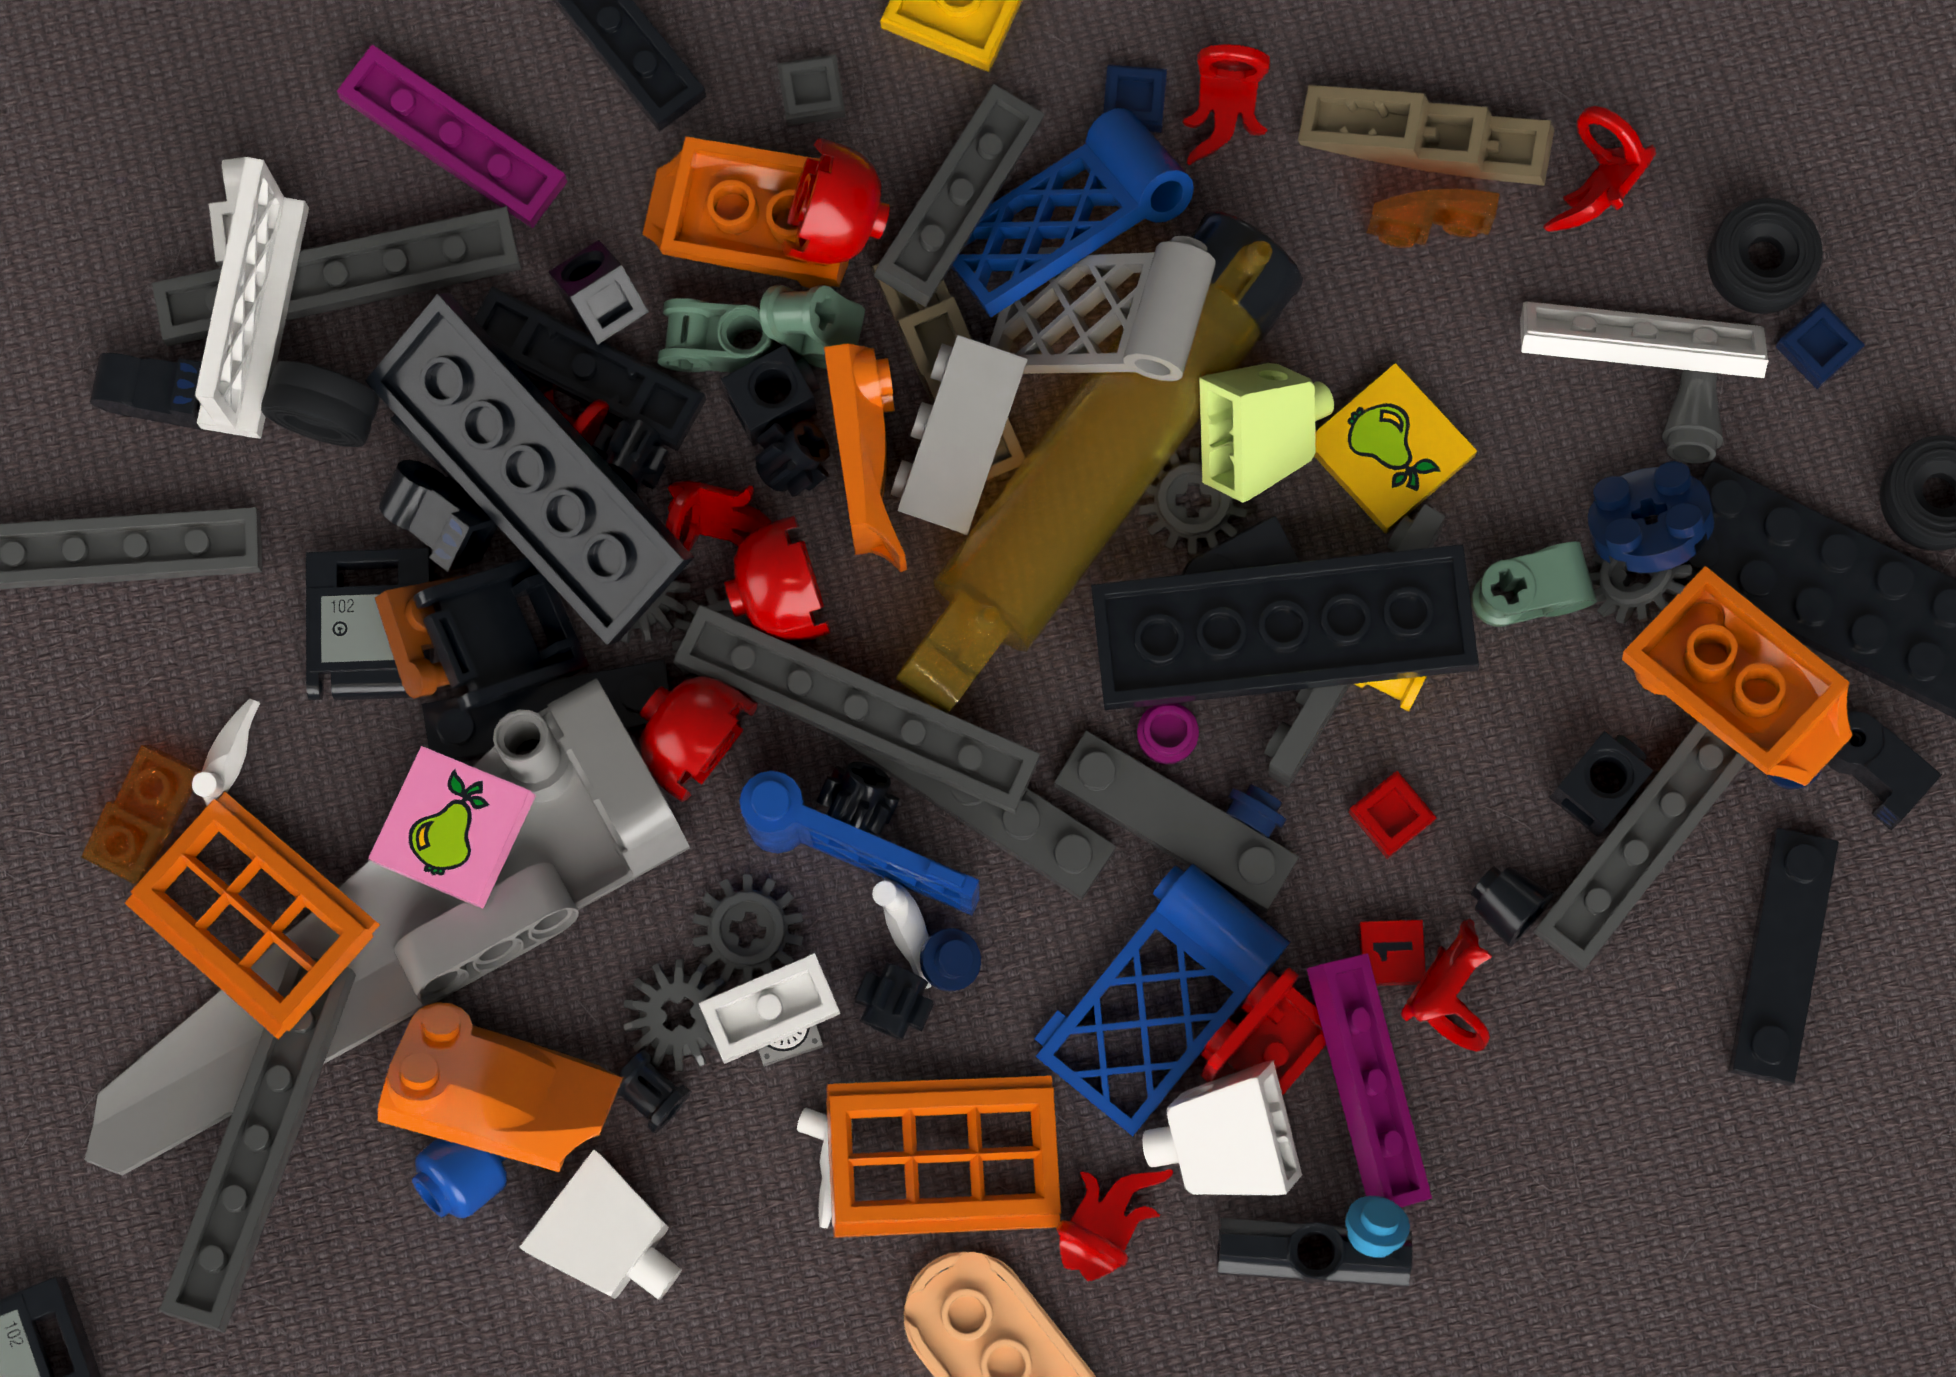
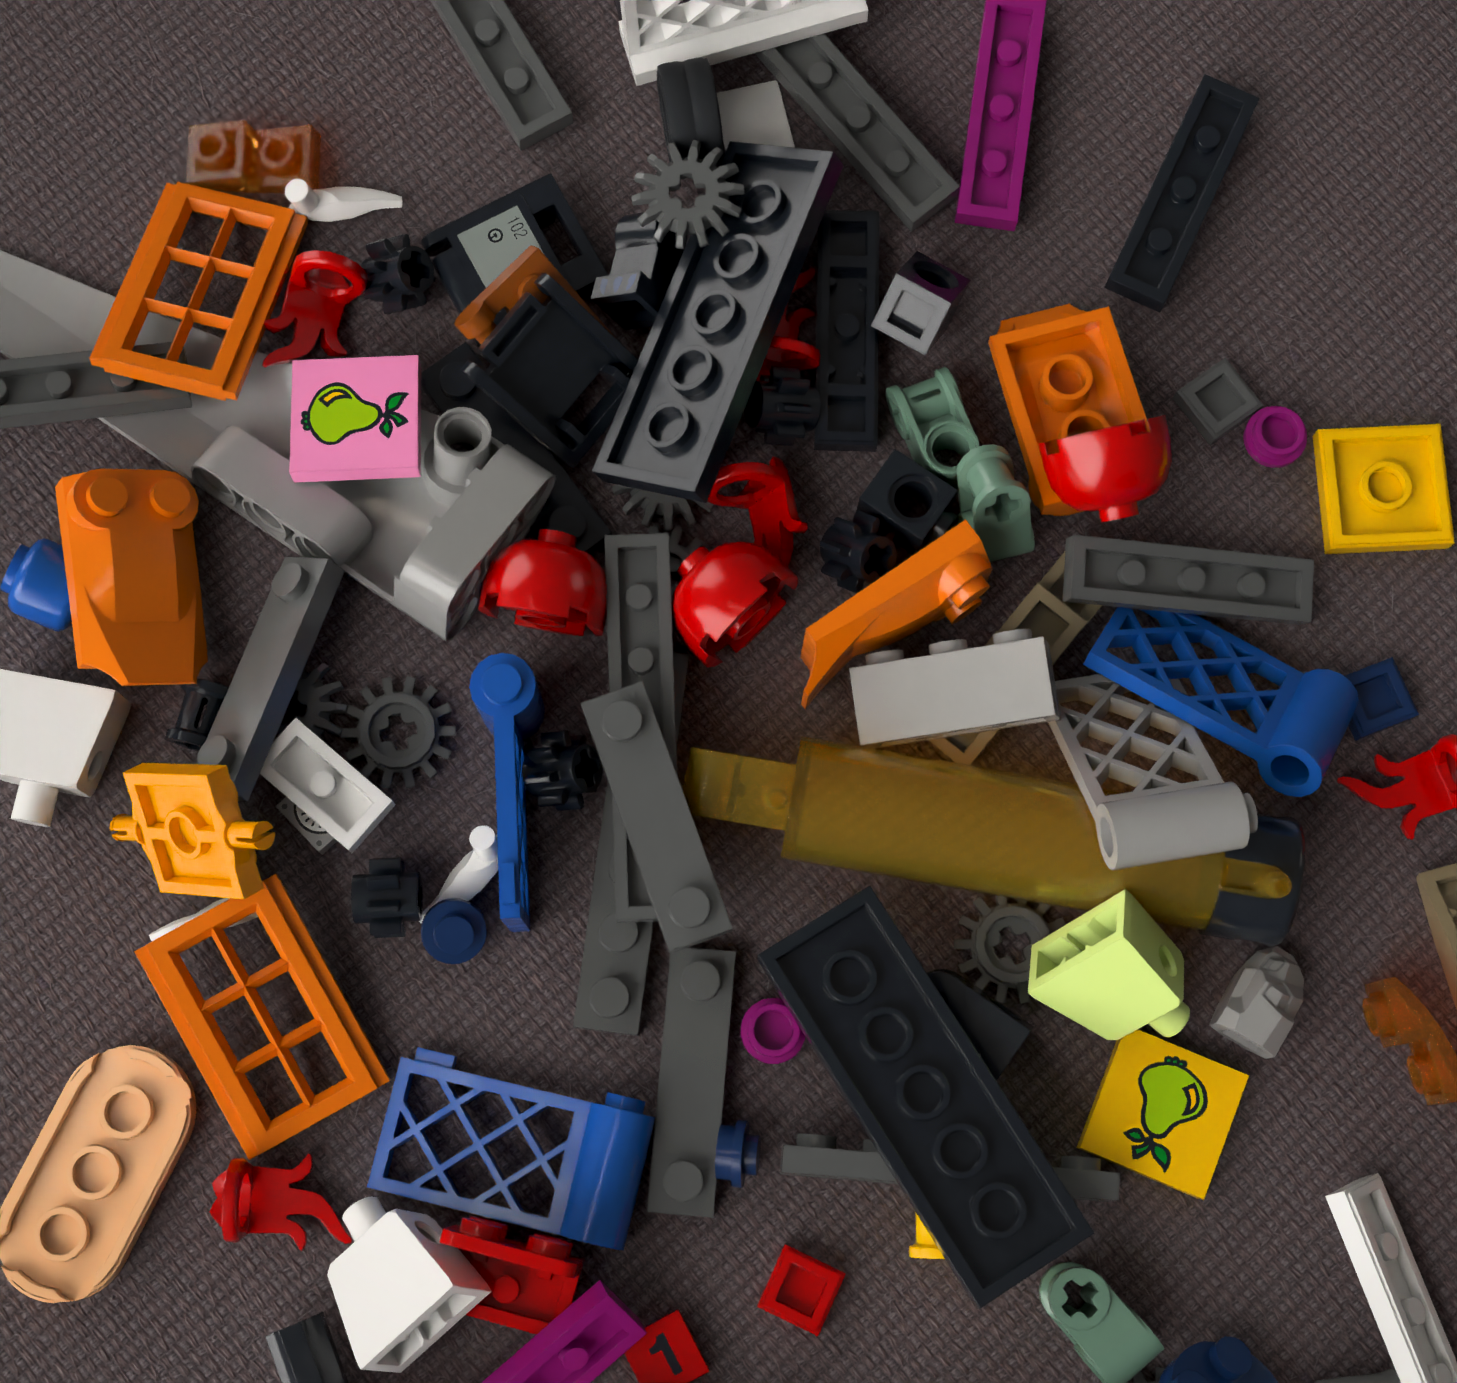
camera: 60 degrees right, 0 degrees up
(318, 822) = (316, 304): none -> red piece
(328, 733) = (397, 273): none -> black gear
(347, 347) = (755, 115): none -> white sticker
(410, 461) = (707, 208): none -> dark grey gear
(647, 1014) = (270, 669): none -> dark grey plate
(756, 1134) = (193, 830): none -> light orange plate
(868, 59) = (1275, 436): none -> magenta plate
(944, 732) = (656, 817): none -> dark grey plate
(1341, 322) = (1261, 1002): none -> light grey rock

